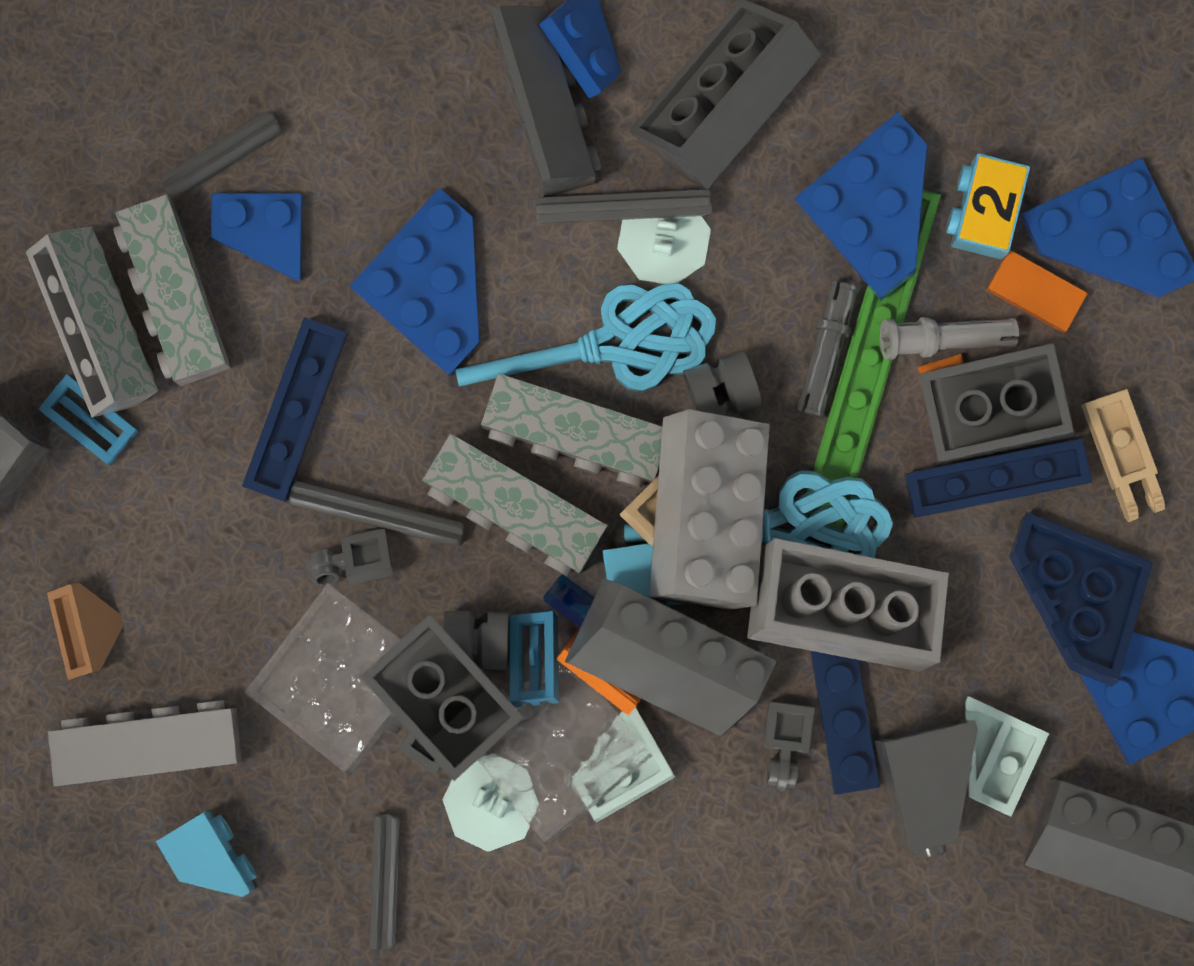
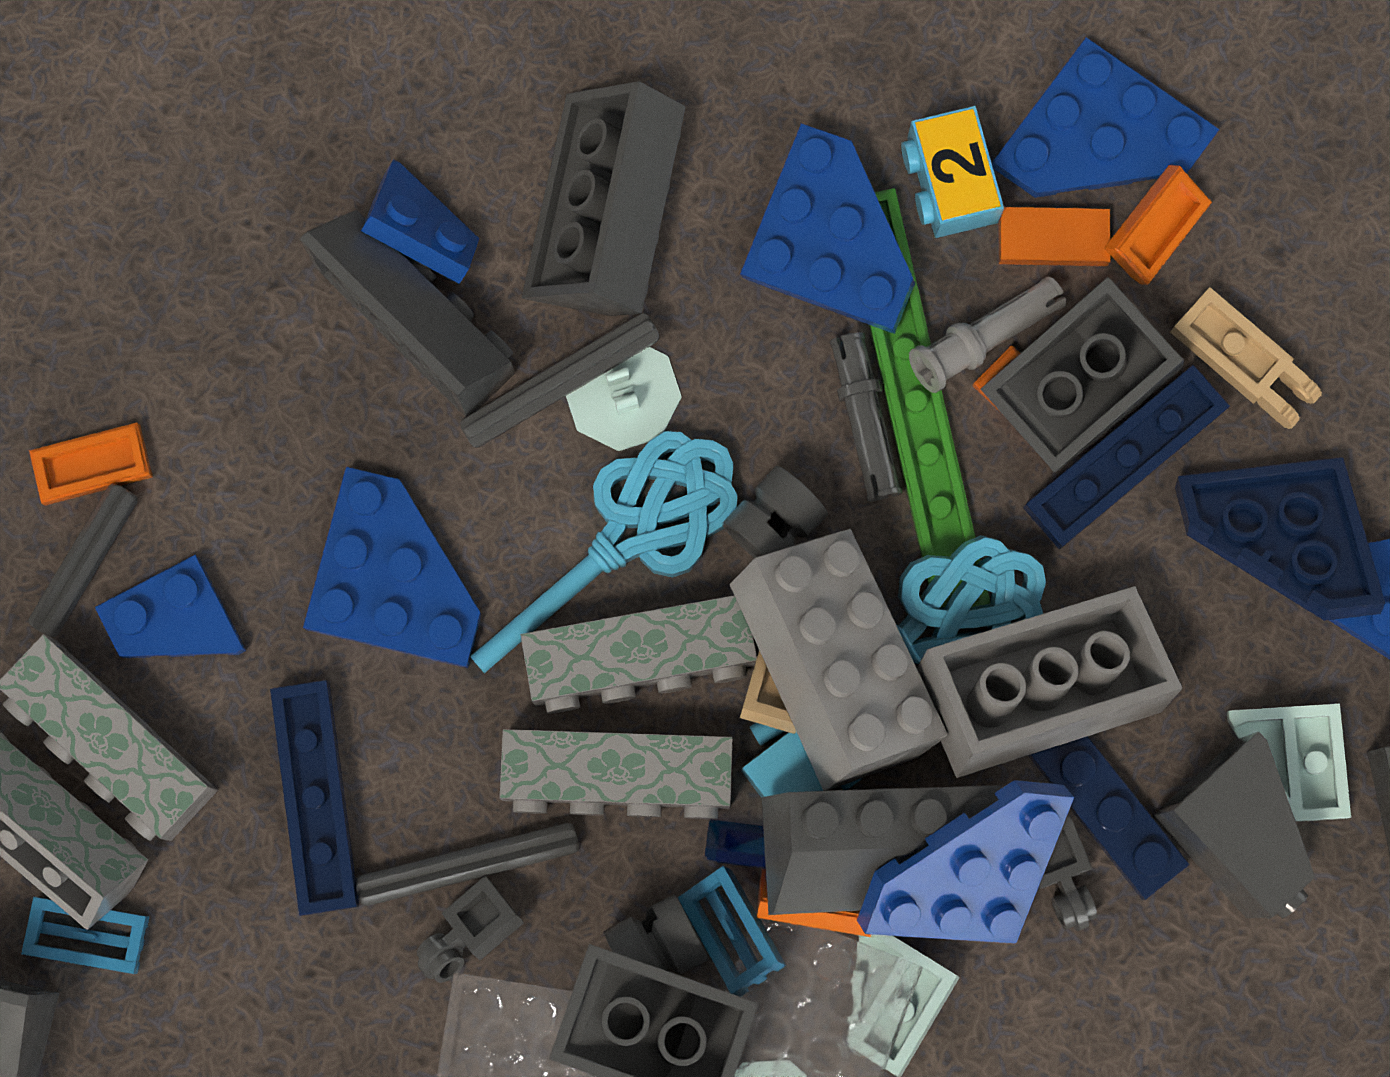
camera: 25 degrees left, 5 degrees down
(261, 88) = (90, 463): none -> orange tile
(723, 710) = (974, 873): none -> plate
(1116, 323) = (1158, 224): none -> orange tile

